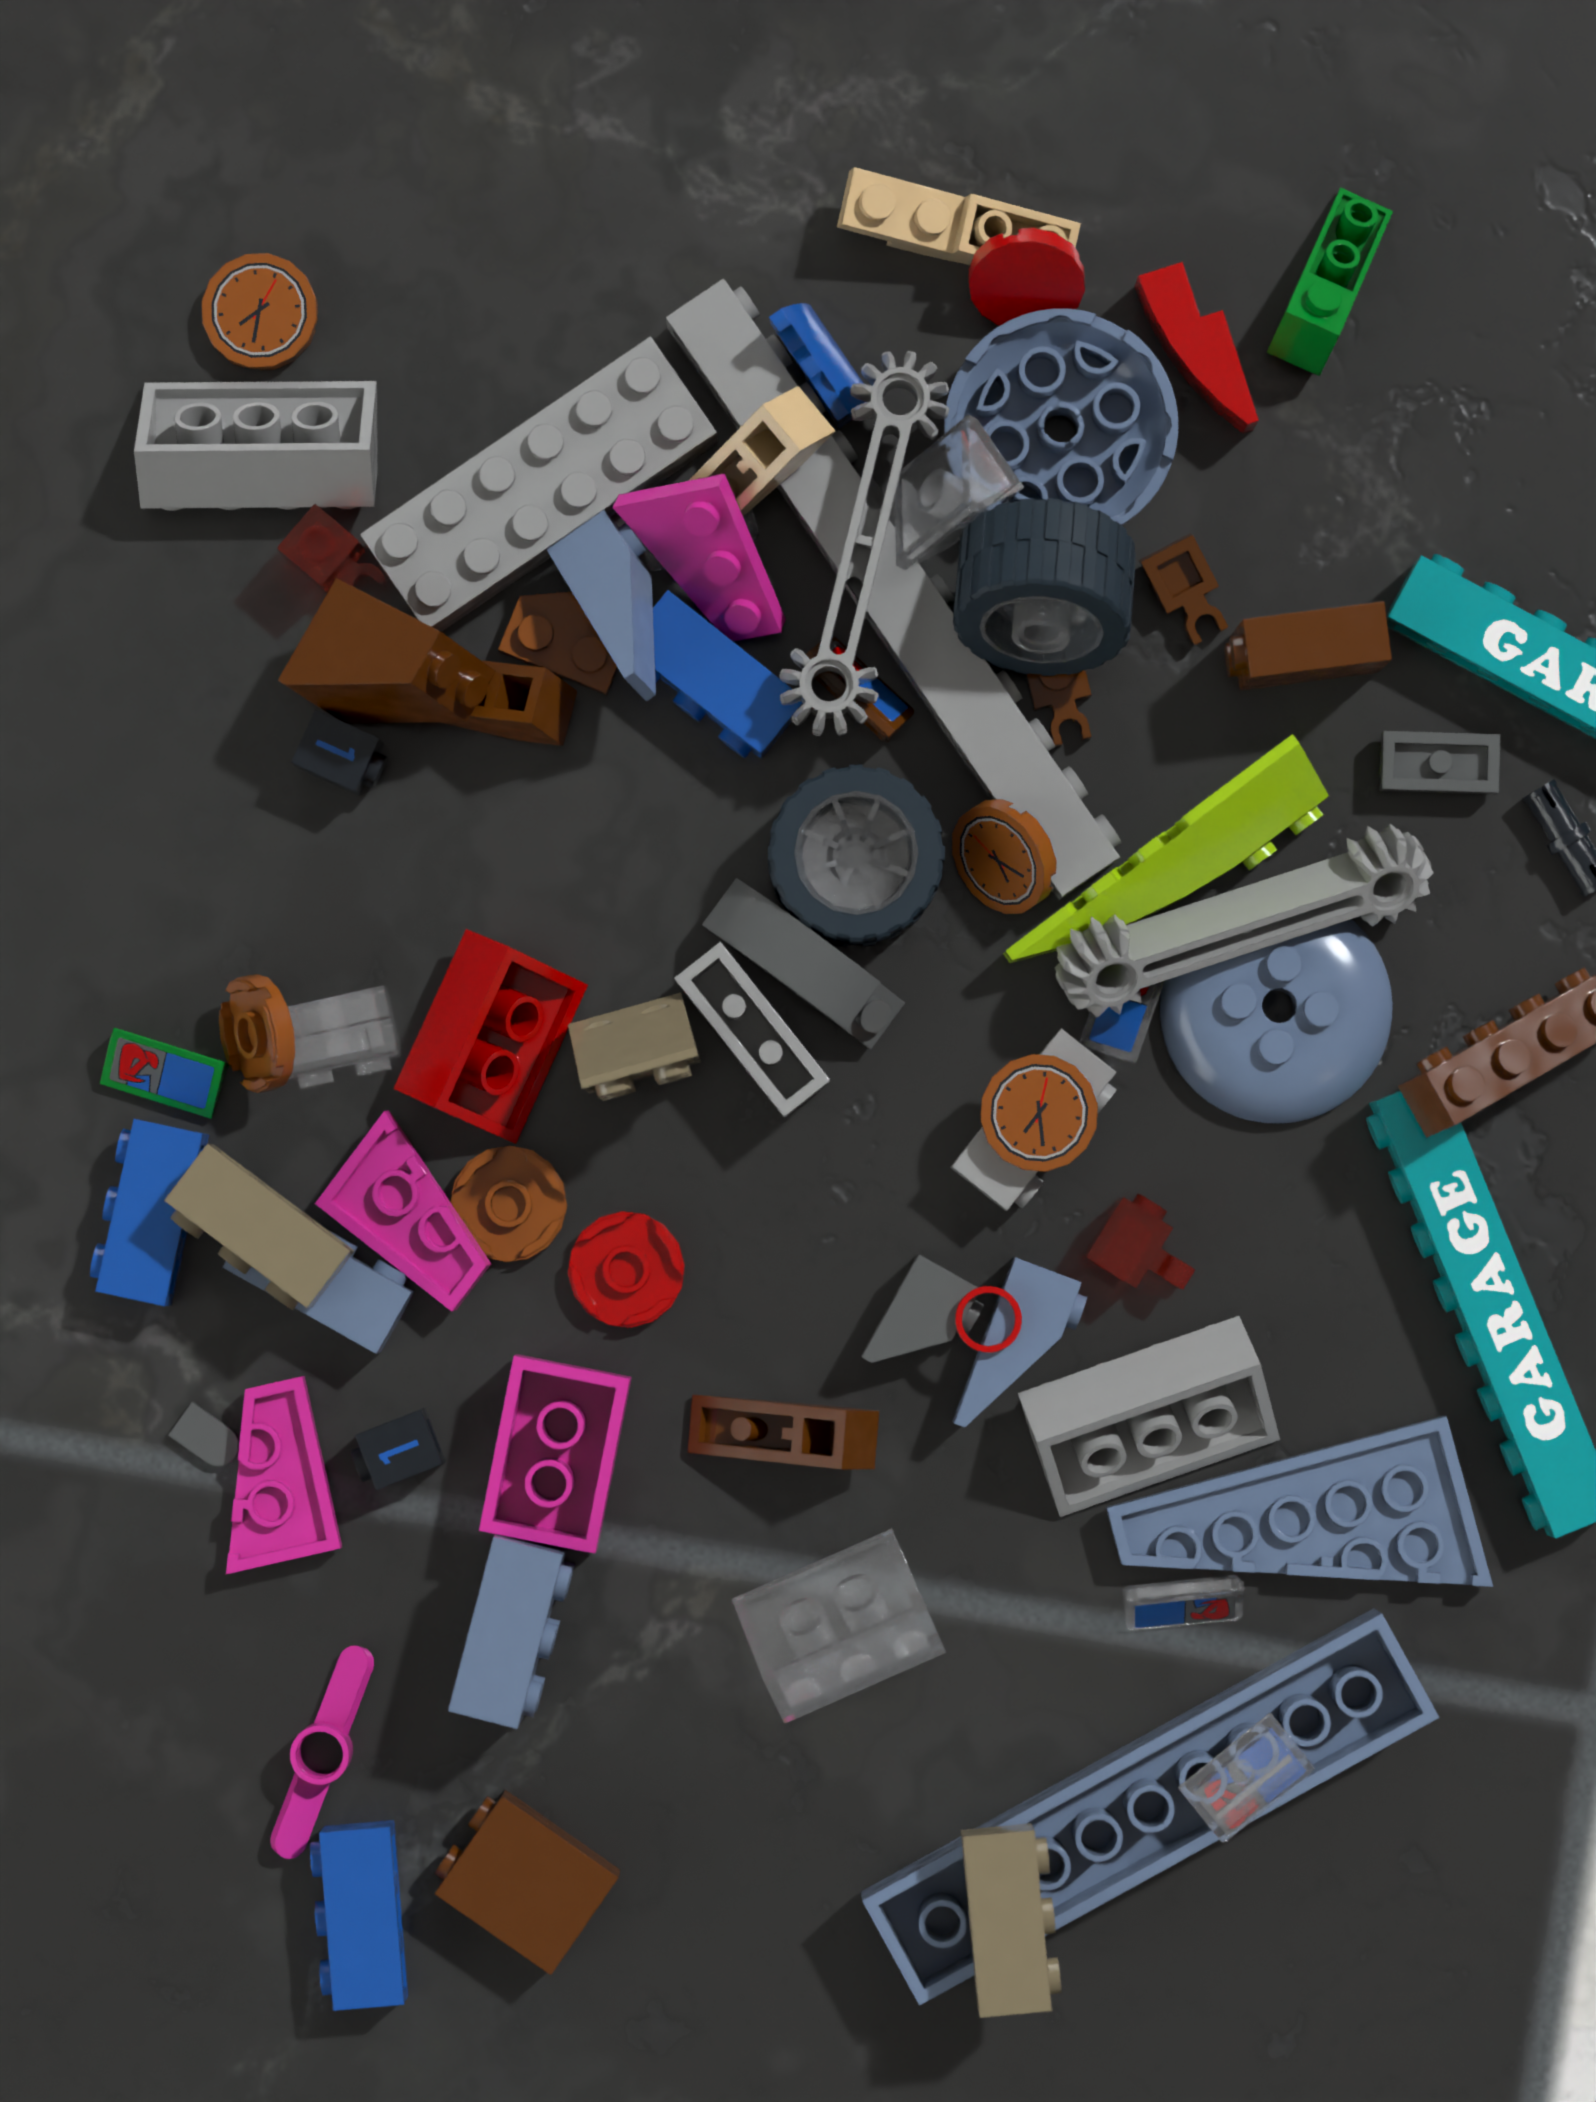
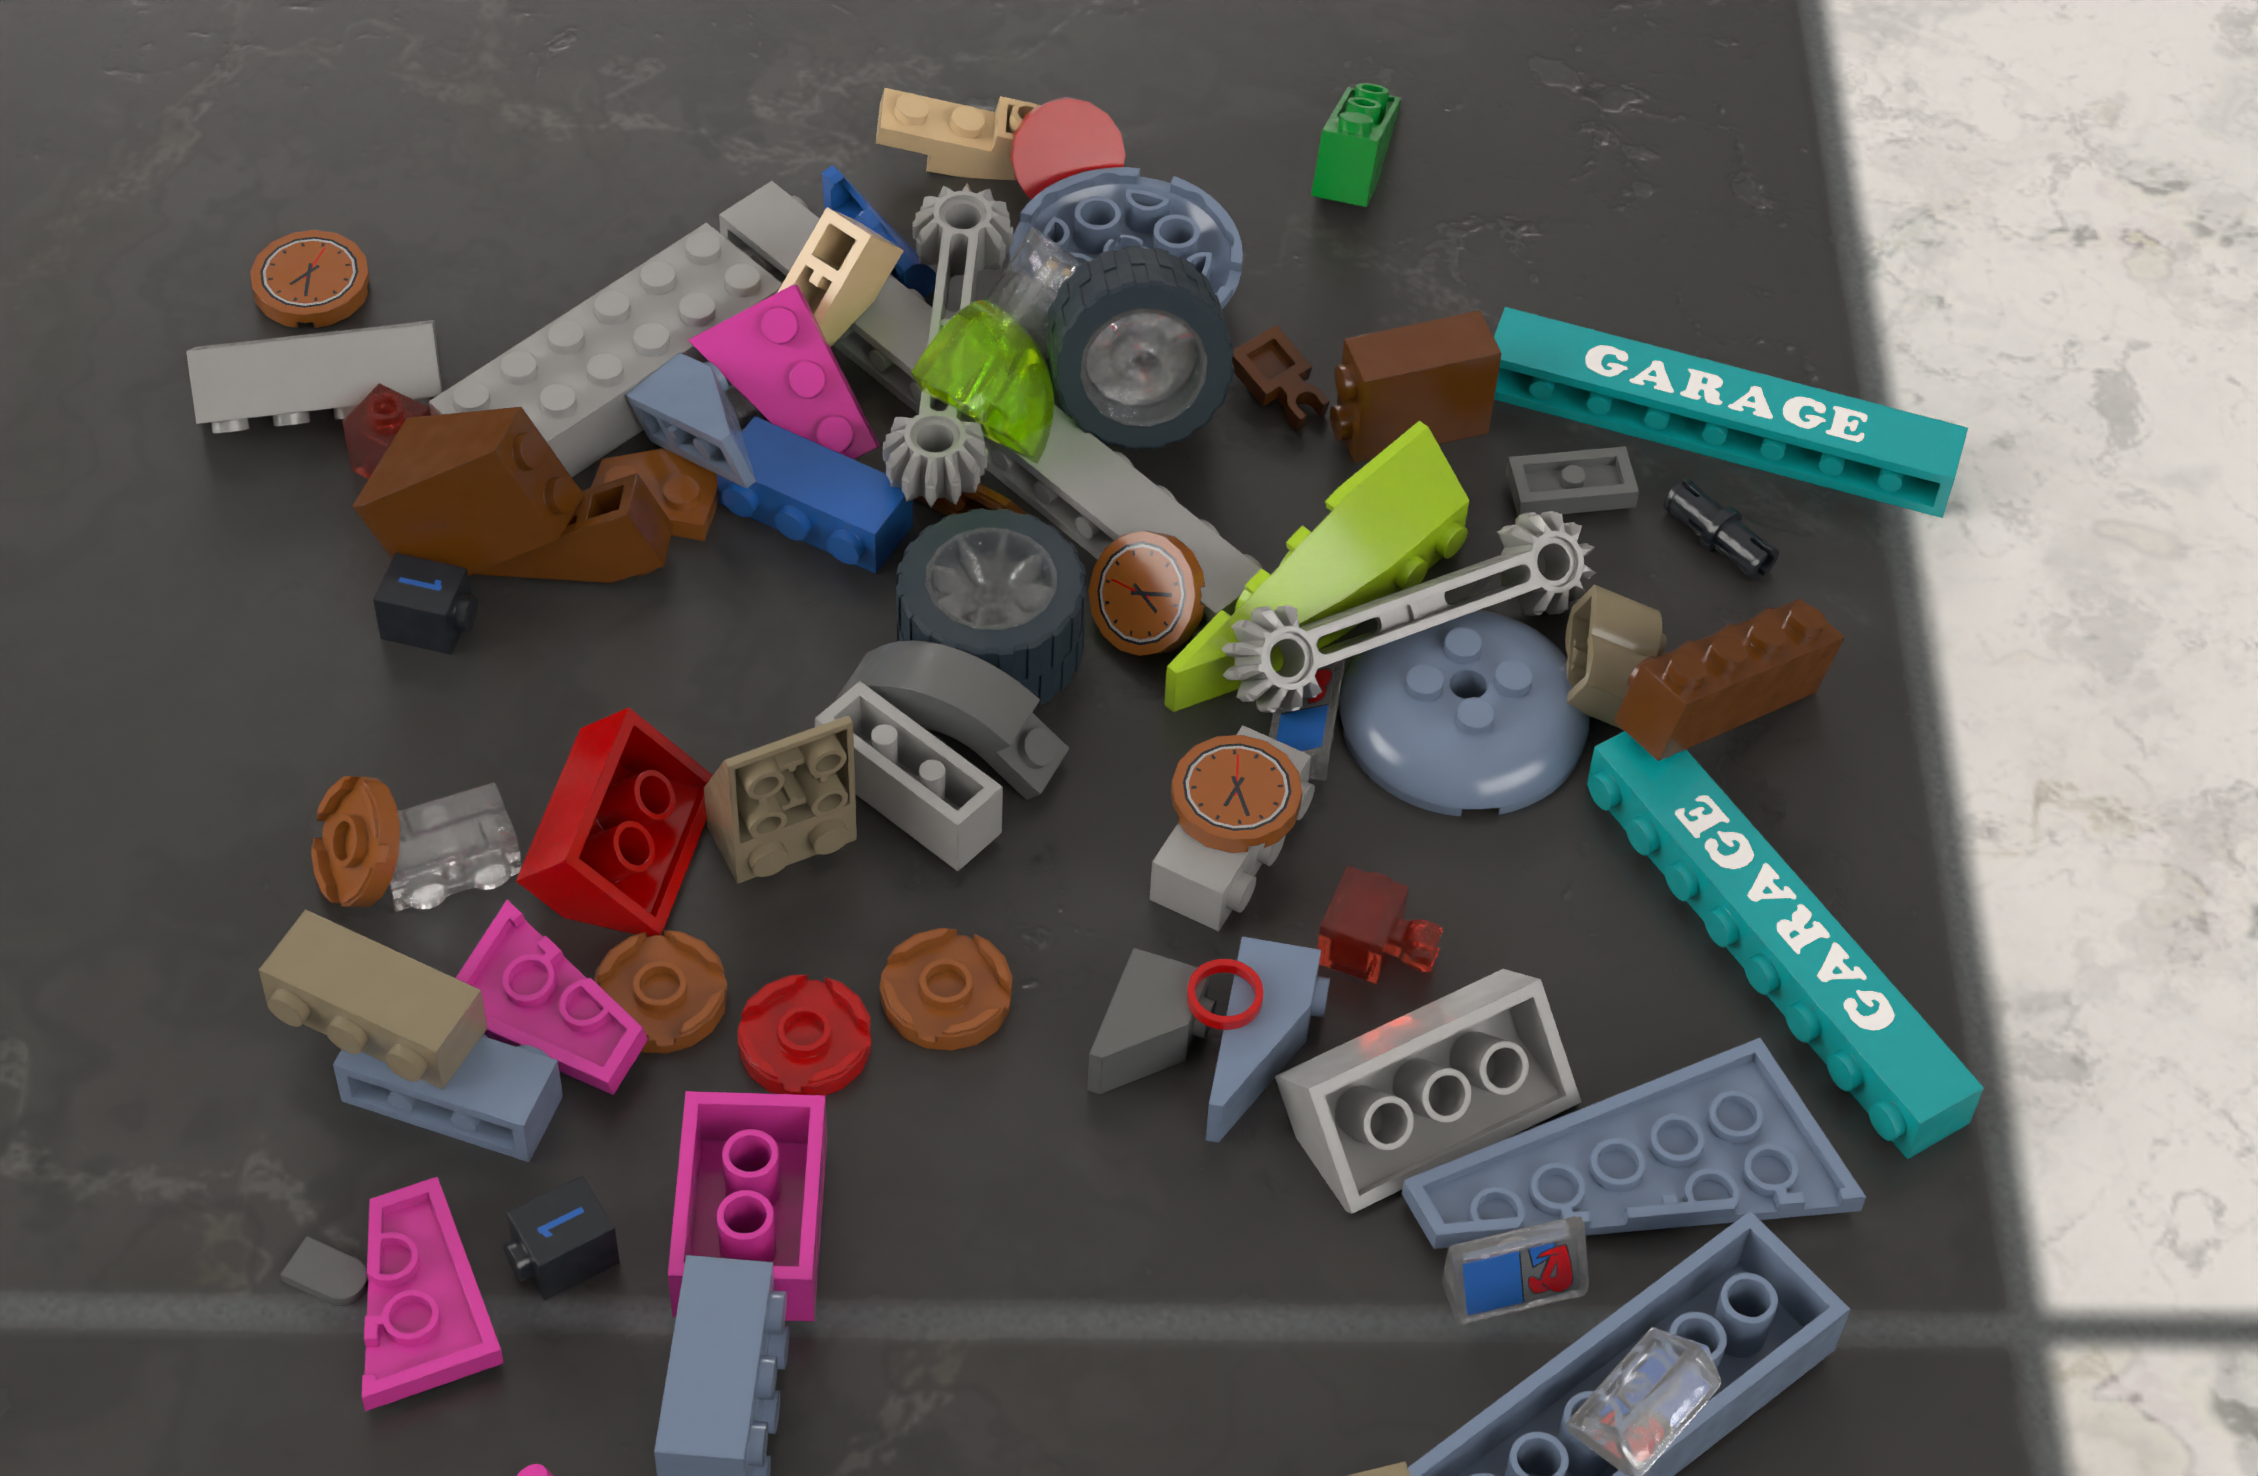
camera: 10 degrees left, 35 degrees down
(142, 1241) = (237, 1052): blue brick -> none
(163, 1073) = (245, 907): slope -> none
(742, 1252) = (940, 1008): none -> dark orange tile
(783, 1432) = (1018, 1156): reddish brown slope -> none
(838, 1626) = (1120, 1353): clear slope -> none
(895, 622) = (993, 374): none -> clear neon green brick
(1060, 694) = (1178, 471): reddish brown plate -> none
(1197, 344) = (1250, 193): red slope -> none
(1423, 989) = (1603, 645): none -> dark tan brick

